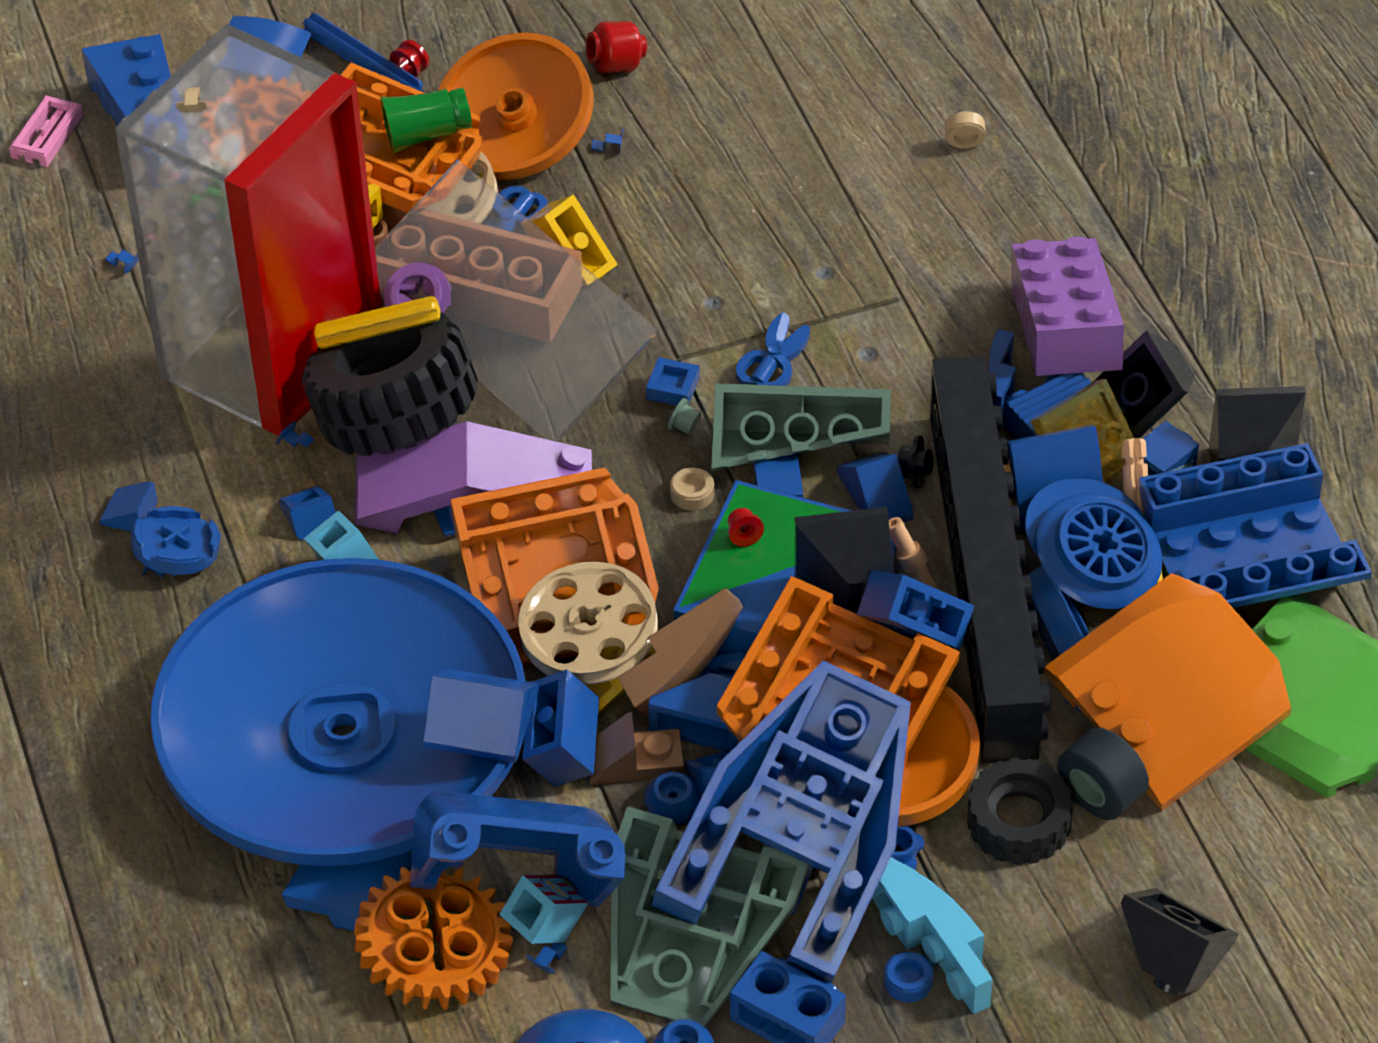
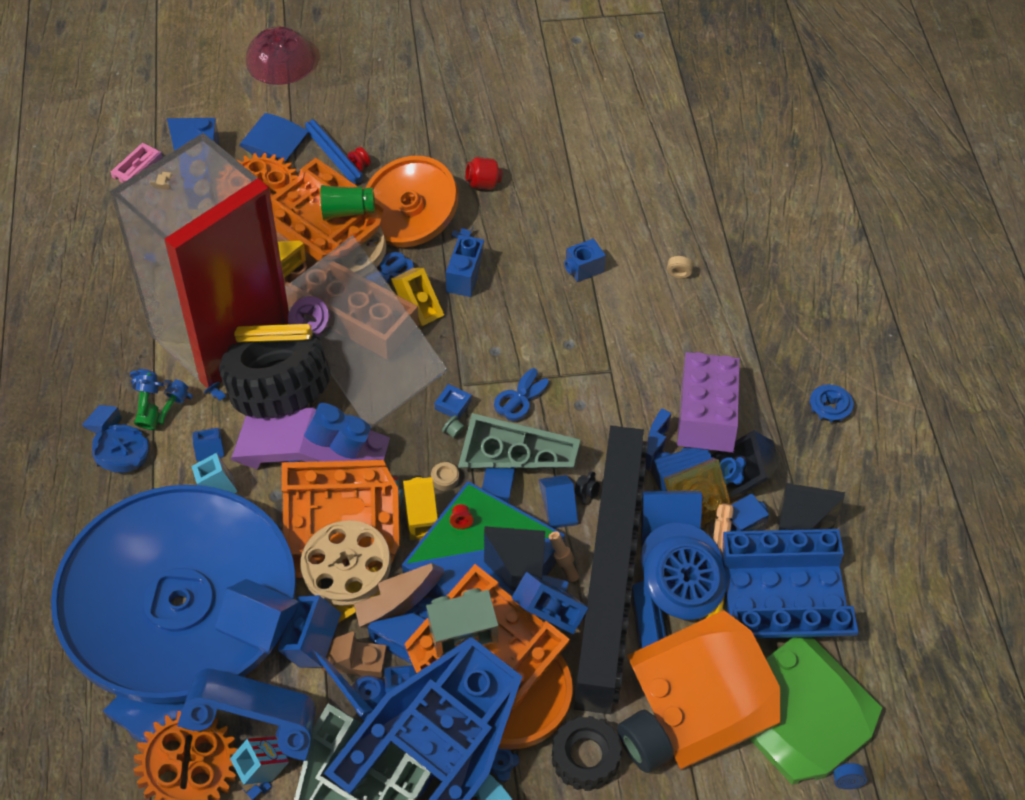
camera: 10 degrees right, 5 degrees up
(189, 437) = (146, 382): none -> plant
(517, 443) = (338, 431): none -> blue brick
(630, 185) = (464, 266): none -> blue slope
(673, 530) = (419, 506): none -> yellow slope
(678, 811) = (358, 703): none -> blue bar
(795, 641) = (461, 618): none -> sand green brick
(815, 145) = (585, 260): none -> blue brick
(1130, 393) = (732, 470): none -> blue plate
(1248, 269) = (833, 394): none -> blue gear

